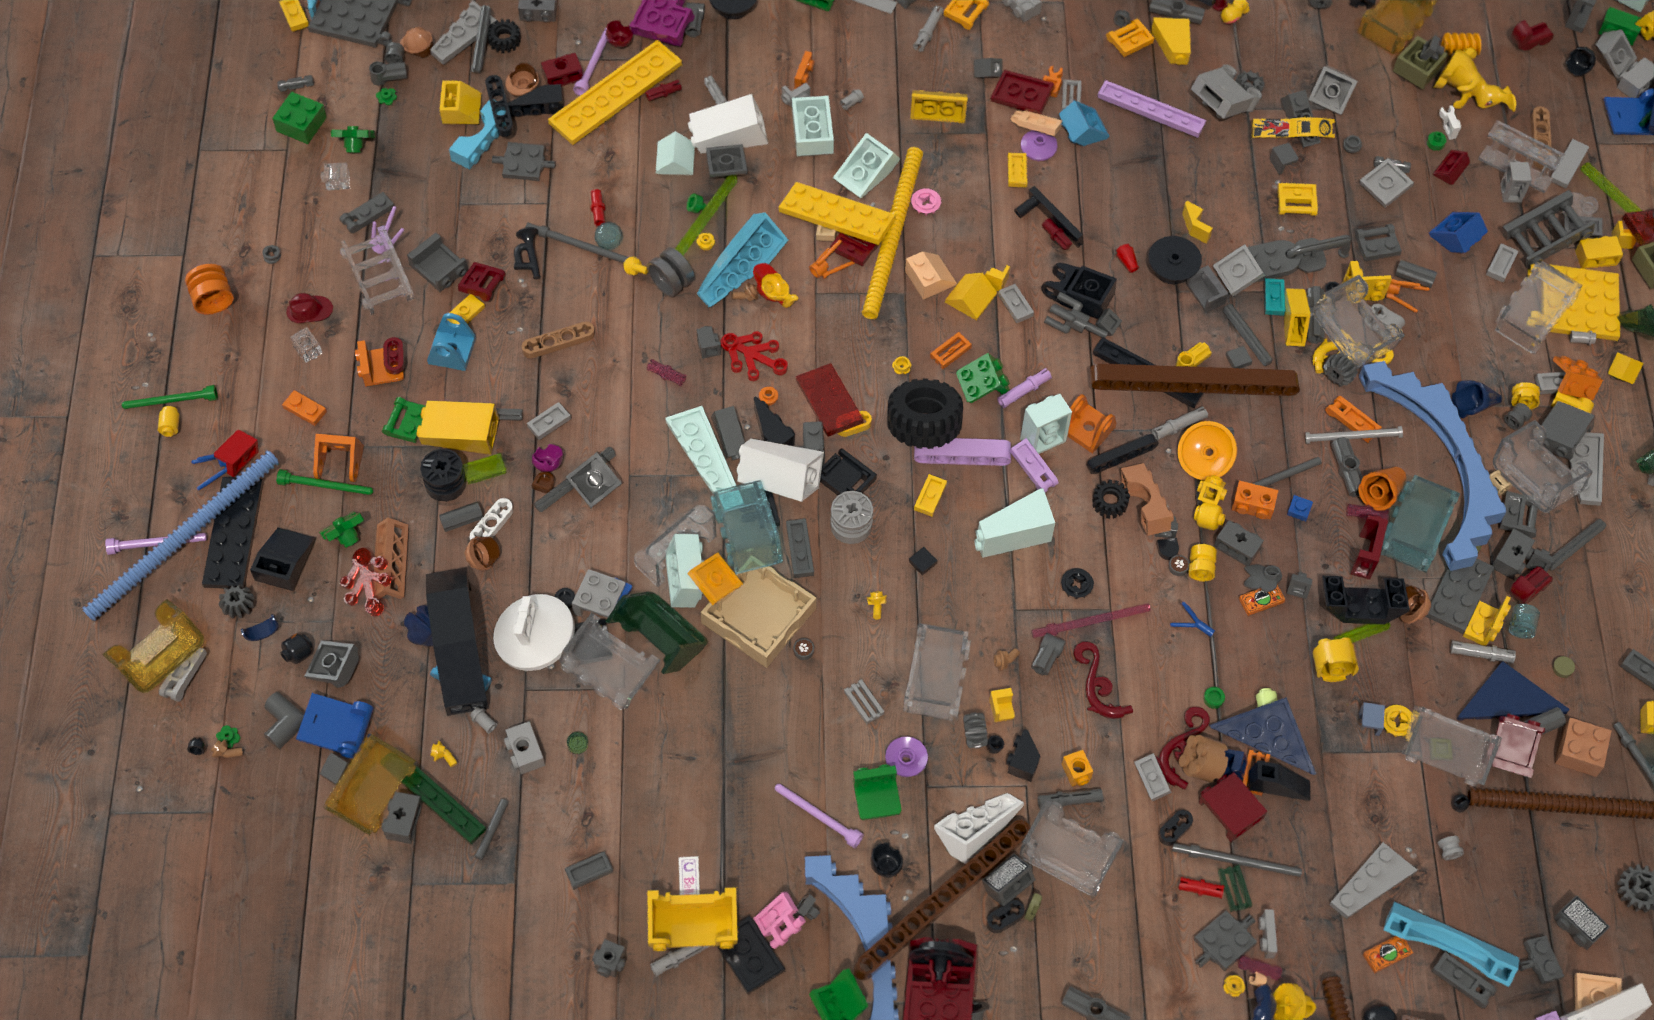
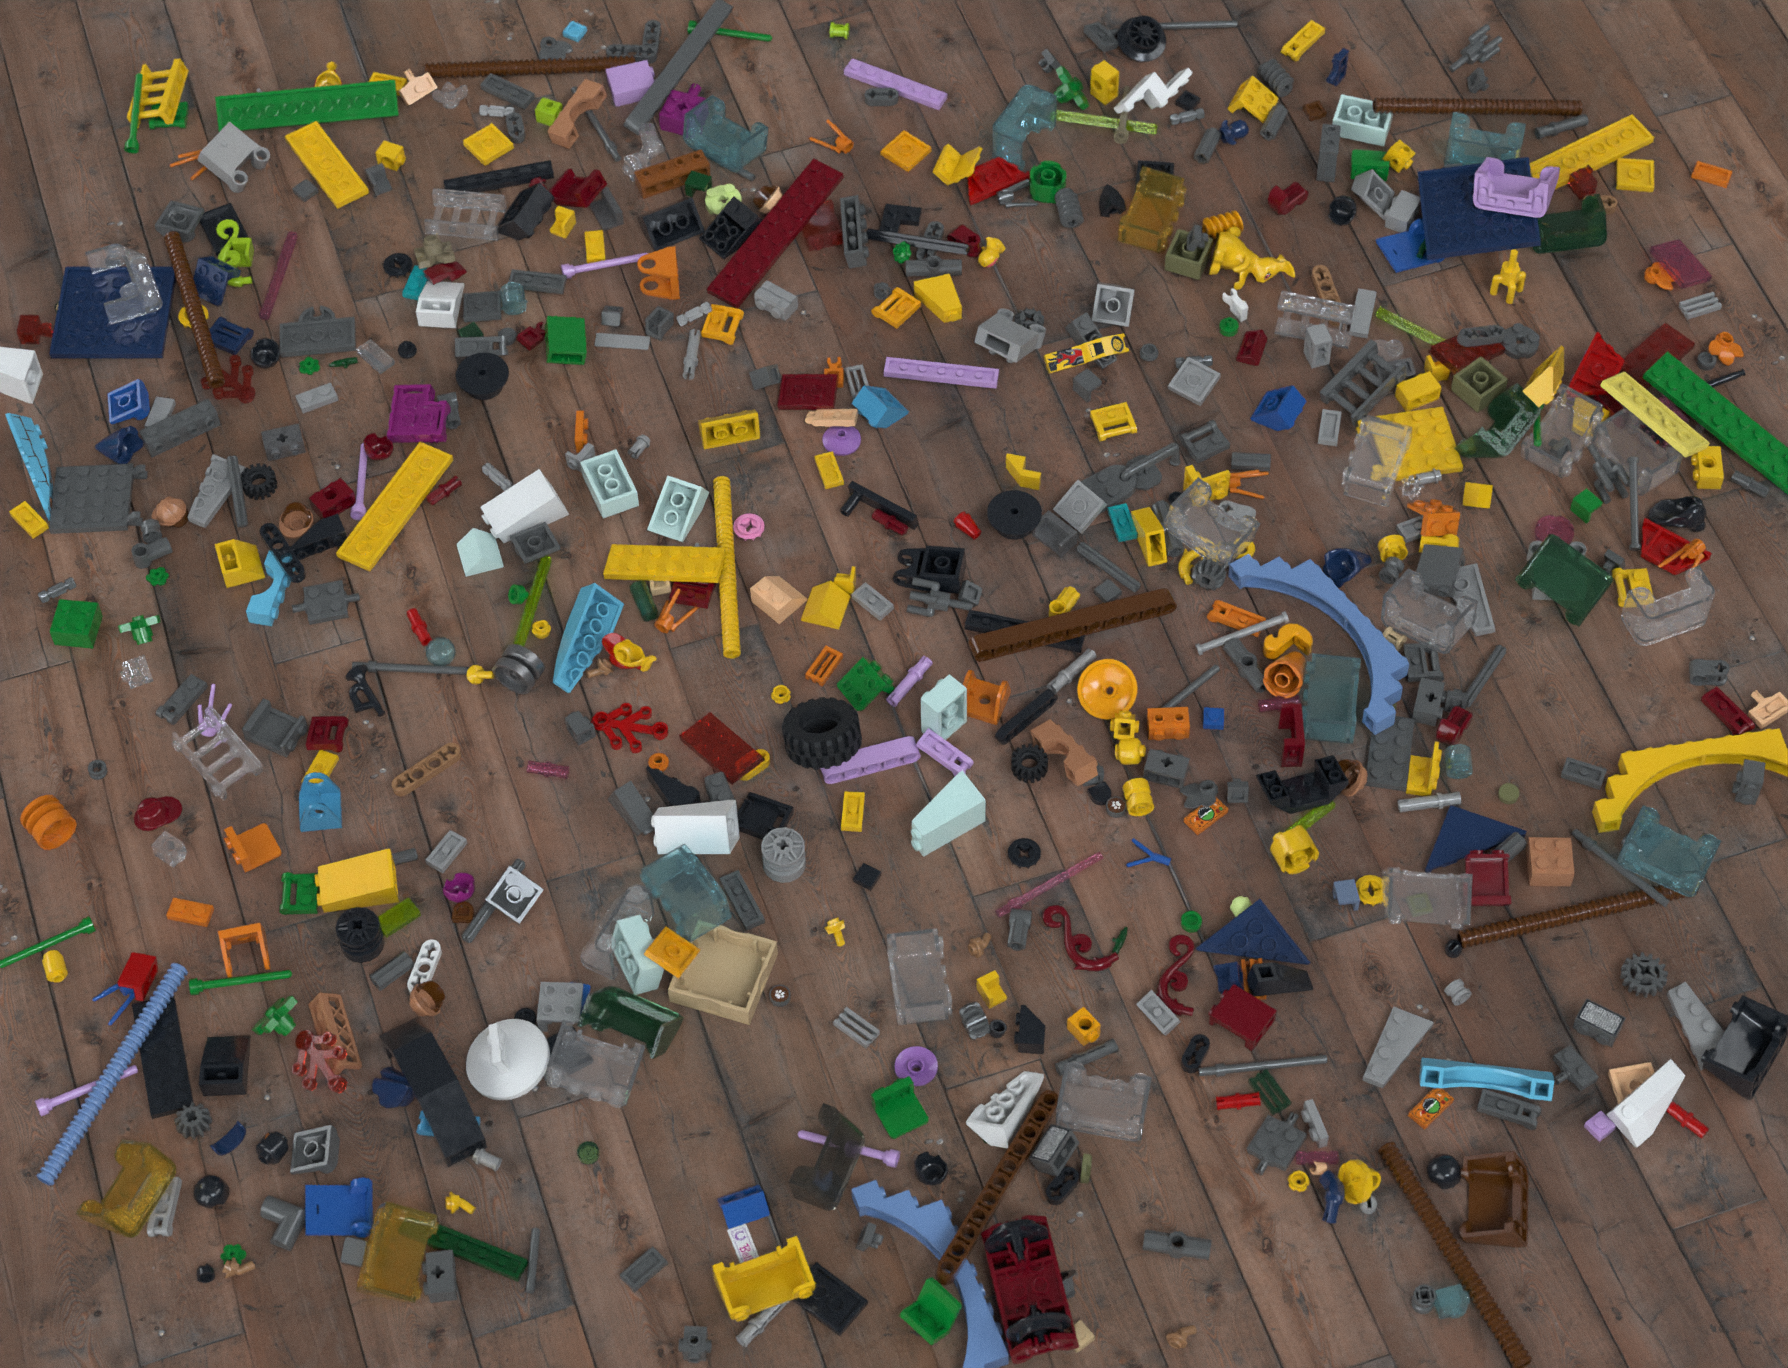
camera: 15 degrees left, 5 degrees down
(229, 671) = (211, 1191): none -> black hair
(393, 357) = (265, 834): dark red plate -> none
(524, 736) = (535, 1161): light grey brick -> none
(701, 447) = (610, 832): light aqua wing -> none
(701, 840) = (744, 1206): none -> blue panel
(776, 914) = (841, 1252): bright pink plate -> none
(797, 827) = (828, 1179): none -> clear smoke windscreen
(807, 242) = (644, 601): none -> clear green axle
(1139, 695) = (1119, 941): none -> dark green helmet
(1204, 758) = (1201, 979): medium nougat brick -> none
(1395, 451) = (1287, 636): none -> light orange animal
(1557, 342) = (1415, 490): none -> clear gear

